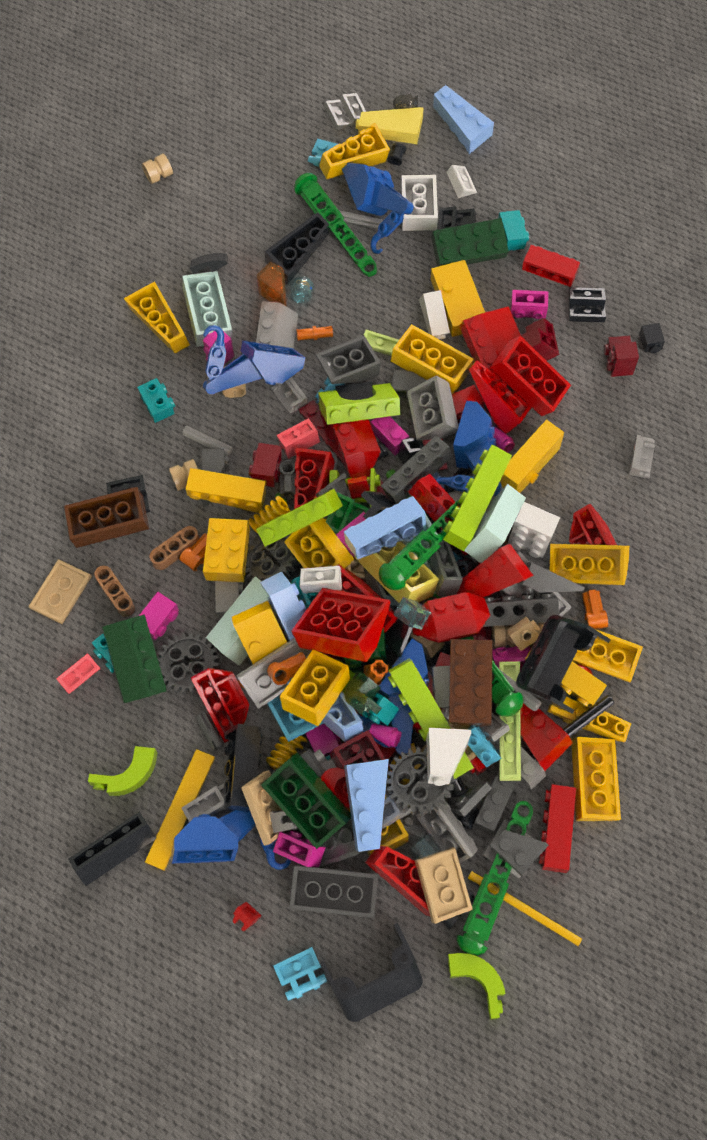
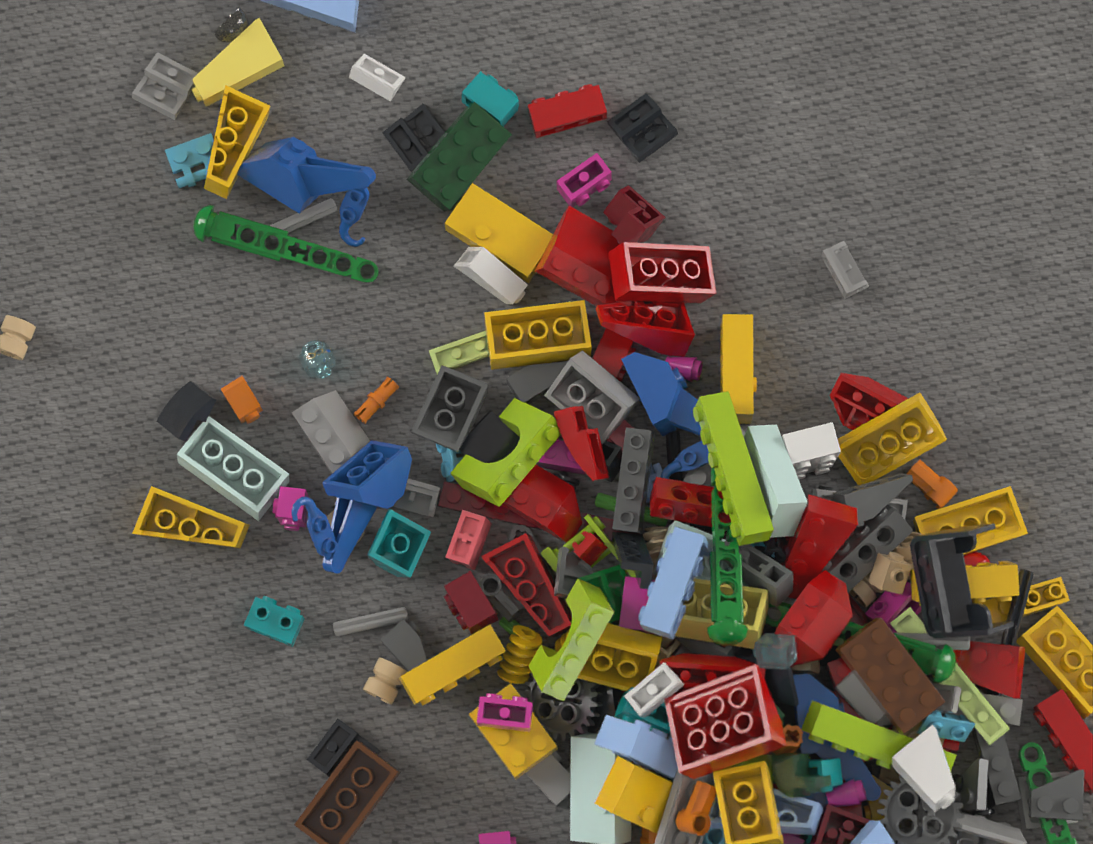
camera: 40 degrees left, 10 degrees up
(164, 549) = (447, 757): medium nougat beam -> none
(195, 555) = (475, 755): orange piece -> none
(225, 527) = (505, 713): none -> dark pink brick
(242, 277) = (242, 400): none -> orange slope
(255, 406) = (398, 545): none -> teal slope
(272, 283) = (287, 382): clear orange slope -> none
(298, 246) = (268, 324): black wedge -> none
(398, 151) = (275, 99): black bush -> none
(405, 426) = (582, 442): none -> red slope
(422, 192) = (357, 141): white brick -> none
(621, 355) = (731, 165): dark red brick -> none
(652, 338) = (746, 117): black brick -> none

